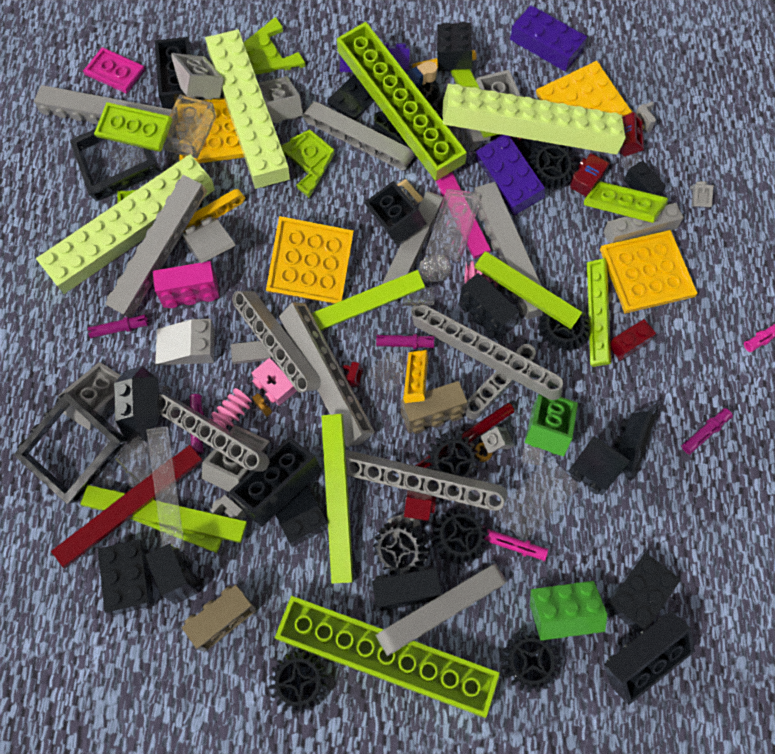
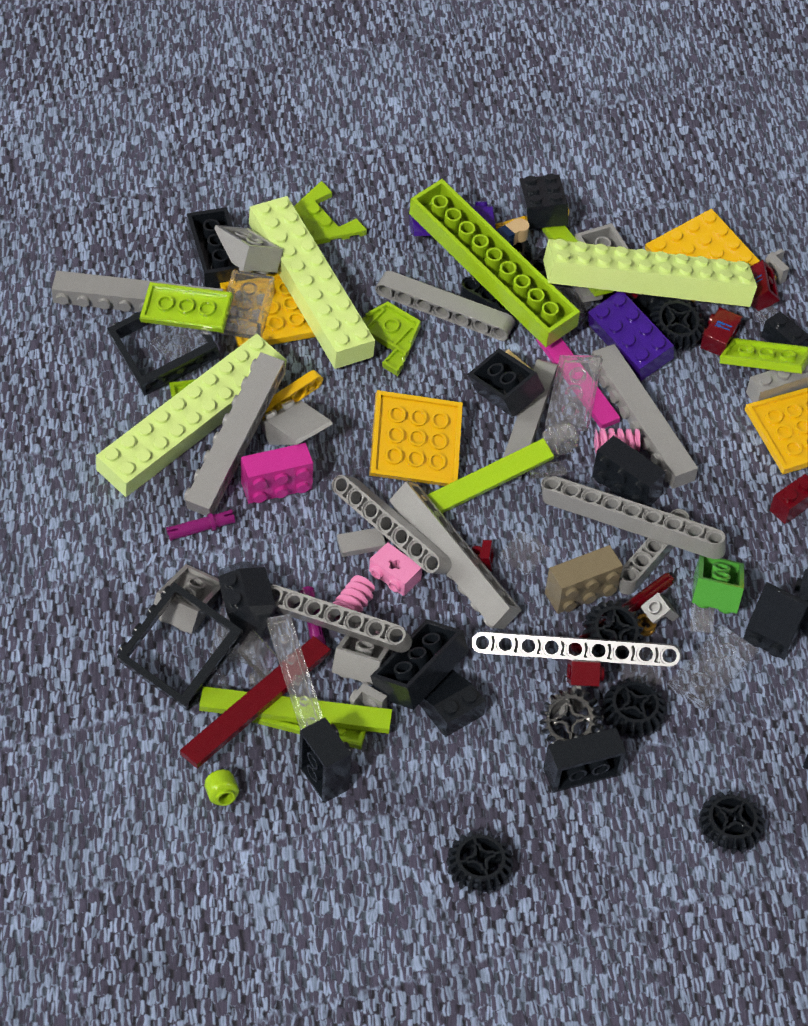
camera: 10 degrees left, 15 degrees down
(86, 585) = (221, 787): none -> lime head
(114, 70) = (135, 251): dark pink tile -> none
(125, 577) = (265, 775): black brick -> none
(186, 343) = (284, 536): light grey slope -> none
(218, 618) = (382, 803): dark tan brick -> none
(259, 402) = (384, 595): pearl gold tile -> none
(281, 99) = (351, 269): light grey slope -> none
(337, 499) = (492, 677): lime tile -> none
(351, 98) = (430, 264): black plate -> none
(405, 341) = (538, 518): magenta pin -> none
(410, 667) = (574, 827): lime brick -> none
(416, 376) = (559, 547): yellow tile -> none
(440, 609) = (627, 772): light grey beam -> none
(528, 290) = (670, 452): lime tile -> none
(538, 552) = (700, 713): dark pink pin -> none
(548, 38) = (650, 187): dark purple brick -> none
(568, 610) = (764, 765): bright green brick -> none
(569, 339) = (716, 497): black gear -> none
(598, 313) = (753, 474): lime tile -> none

